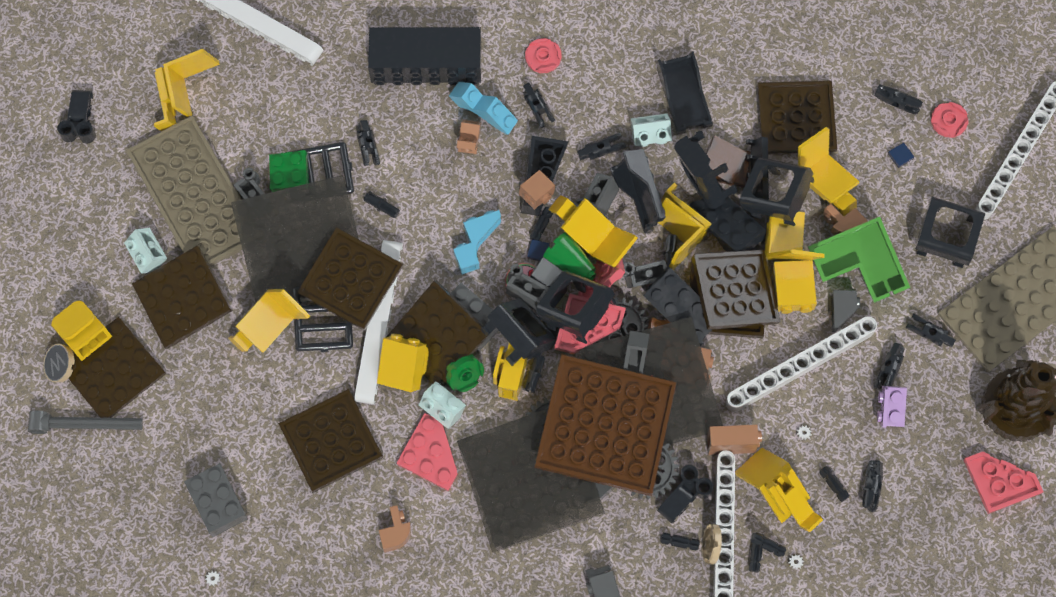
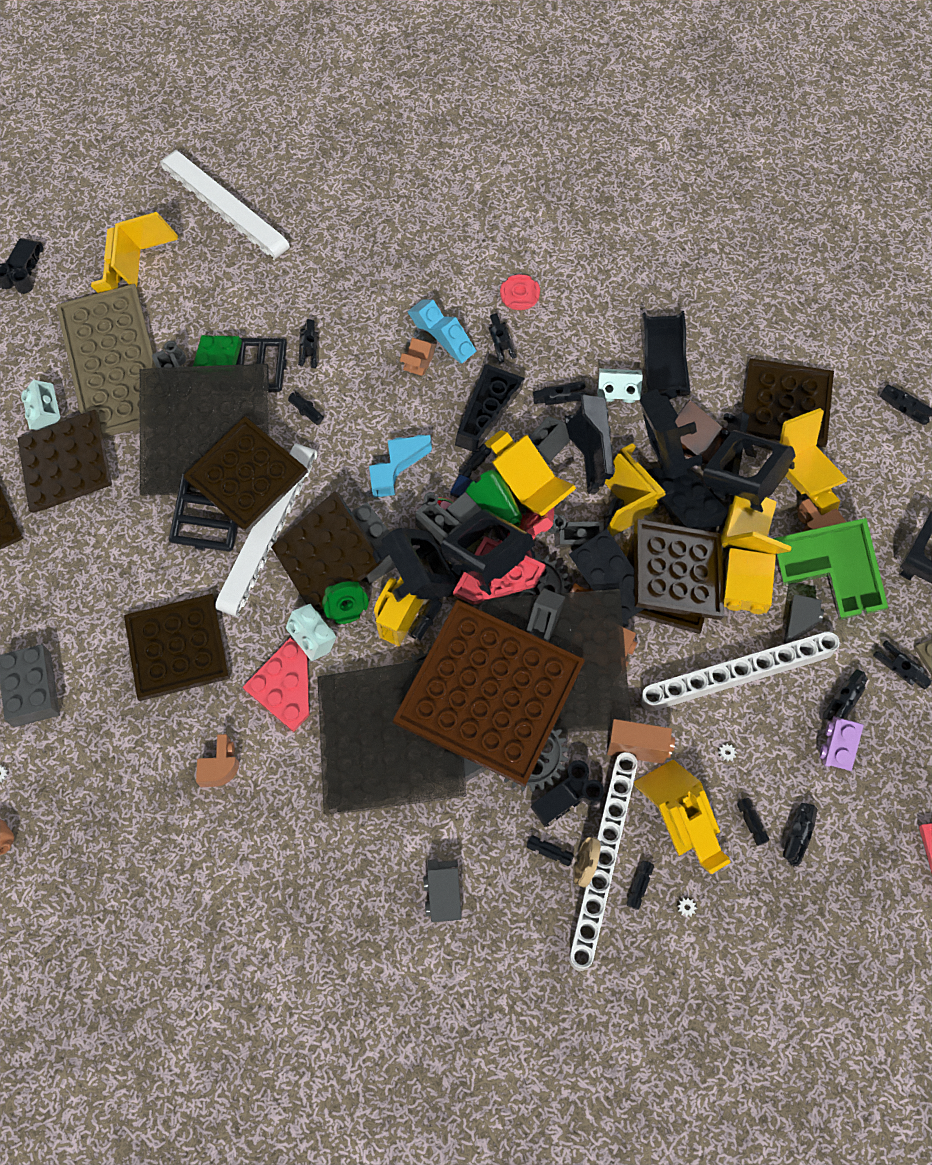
camera: 15 degrees right, 5 degrees down
(267, 320) = (140, 500): yellow piece -> none
(402, 363) = (278, 575): yellow brick -> none
(425, 55) = (392, 265): black brick -> none
(537, 190) = (475, 417): nougat head -> none
(768, 544) = (657, 878): black axle -> none
(901, 155) = (899, 464): dark blue tile -> none

